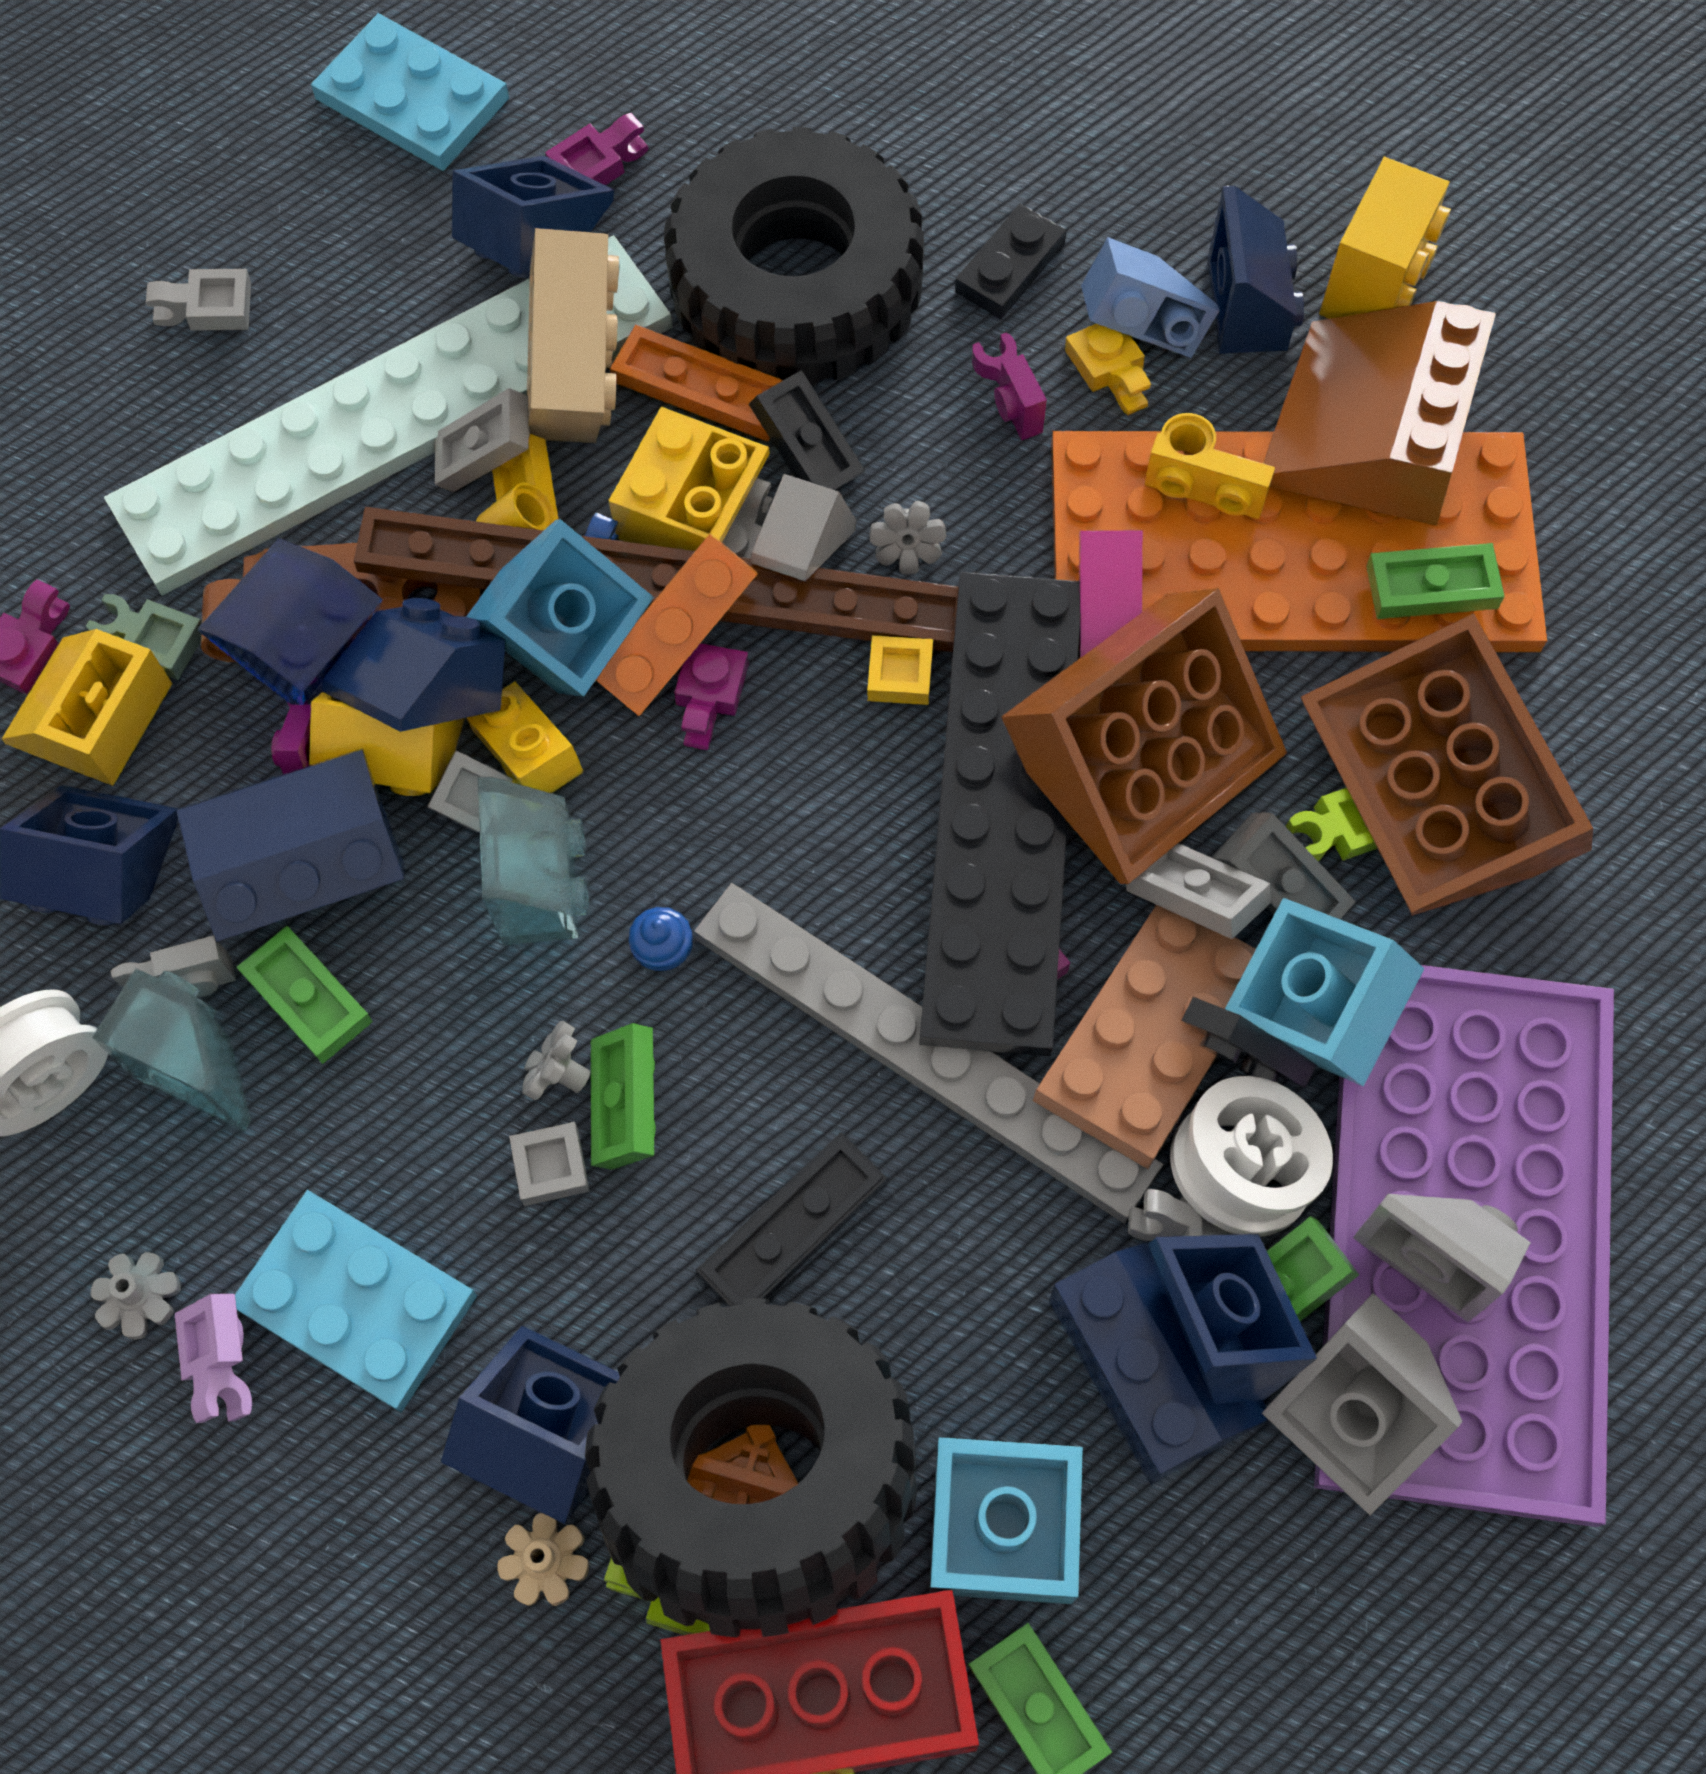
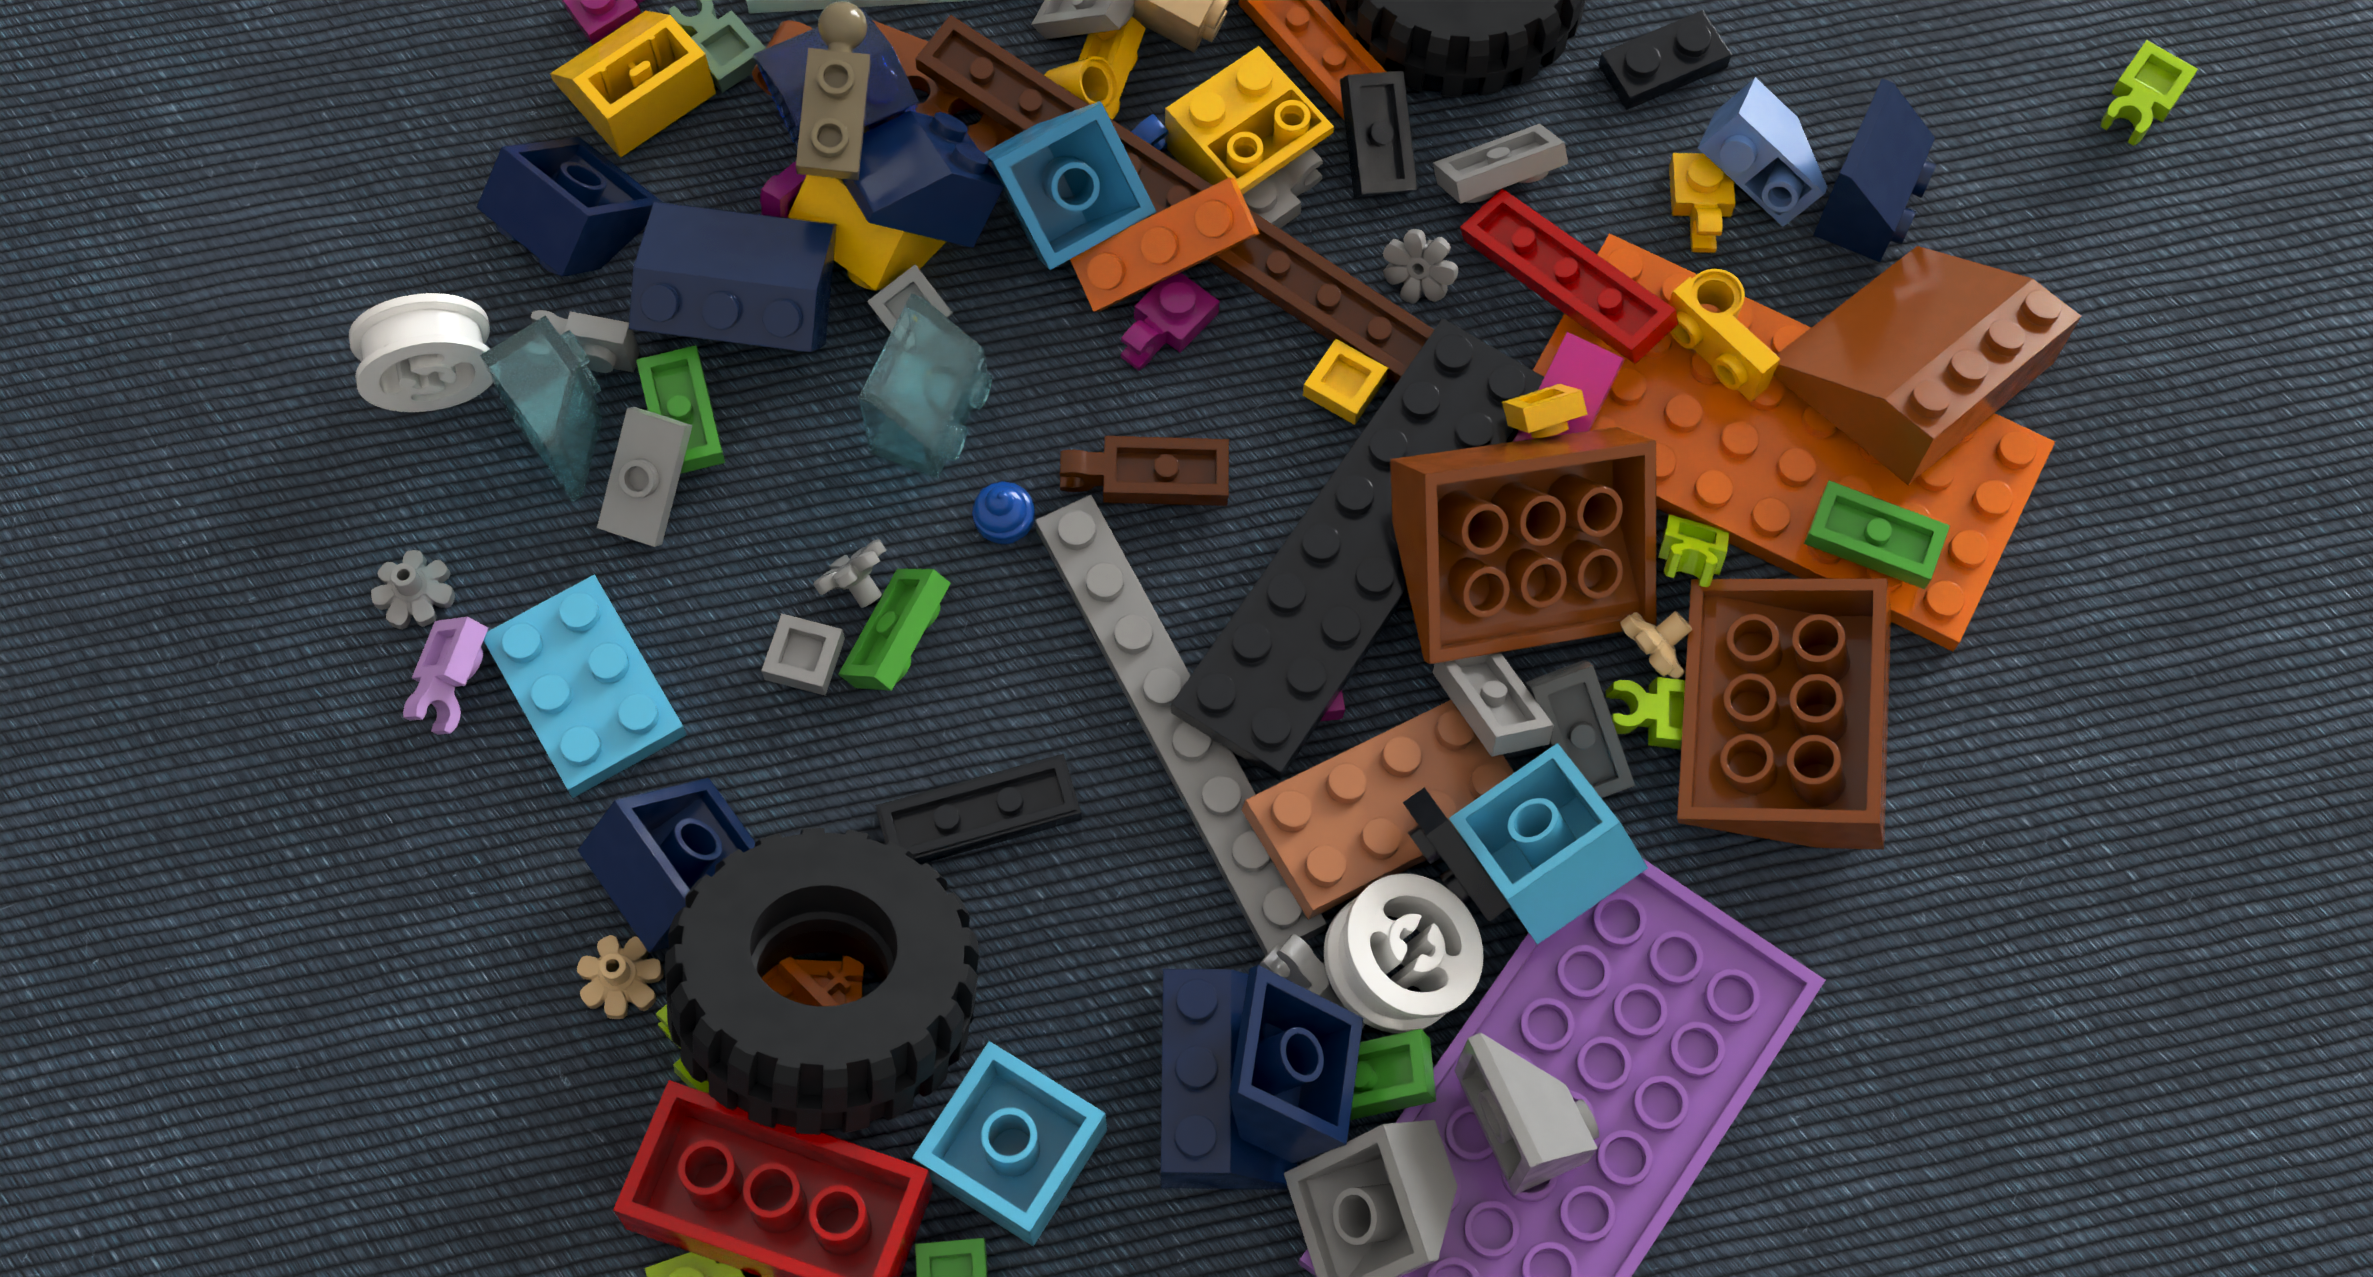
camera: 25 degrees right, 0 degrees up
(305, 629) = (835, 96): none -> dark tan plate
(306, 1073) = (644, 476): none -> light grey plate
(527, 742) = (982, 288): yellow plate -> none
(774, 834) = (1151, 470): none -> reddish brown plate
(802, 528) = (1324, 214): light grey slope -> none
(925, 414) = (1500, 163): none -> light grey plate
(1018, 392) = (1595, 185): magenta plate -> none
(1046, 482) = (1569, 276): none -> red plate
(1103, 608) = (1545, 410): none -> yellow plate
(1287, 670) = (1693, 549): none -> lime plate
(1305, 764) = (1659, 641): none -> tan plant
(1387, 242) = (2020, 202): yellow brick -> none
(1423, 103) = (2148, 89): none -> lime plate

